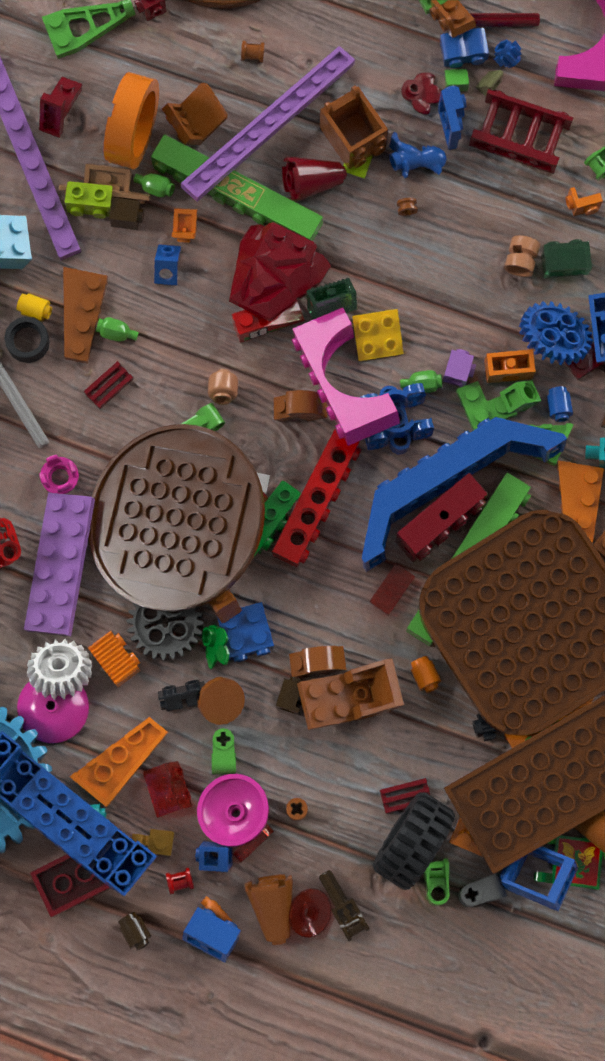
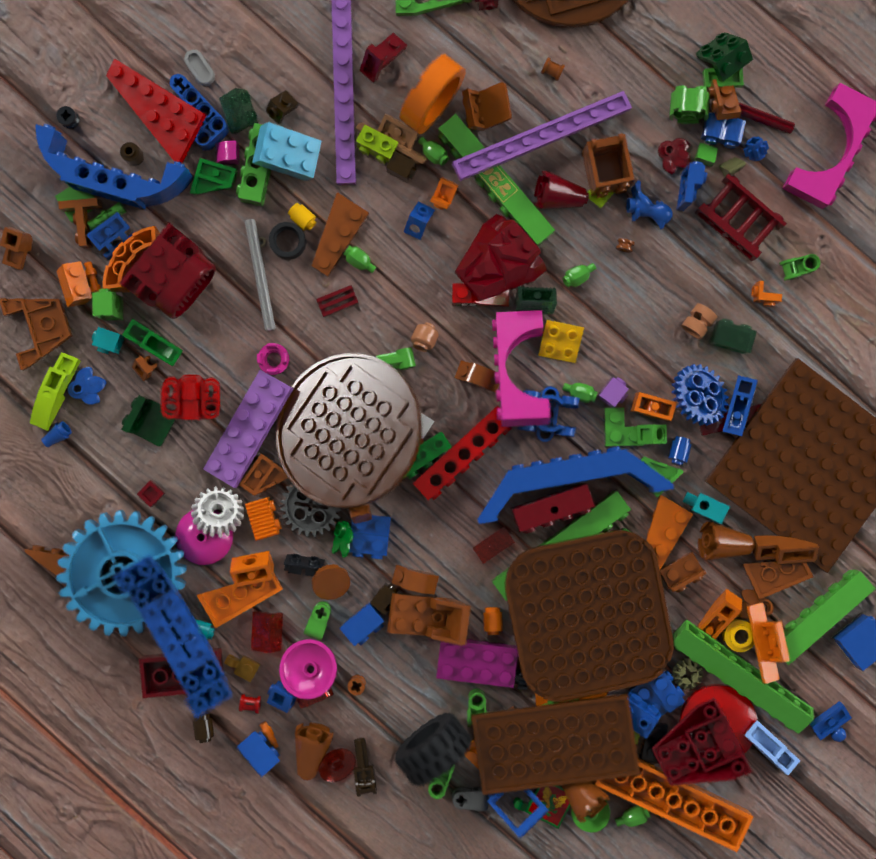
camera: 20 degrees right, 10 degrees up
(97, 610) = (263, 475): none -> dark orange wing
(123, 719) = (252, 568): none -> orange brick
(276, 735) = (362, 624): none -> blue brick
(368, 257) = (578, 275): none -> bright green plant
(383, 792) = (438, 704): dark red tile -> none
(416, 33) = (689, 104): none -> bright green brick
(425, 727) = (478, 662): none -> magenta brick
(441, 783) = (475, 708): none -> bright green piece

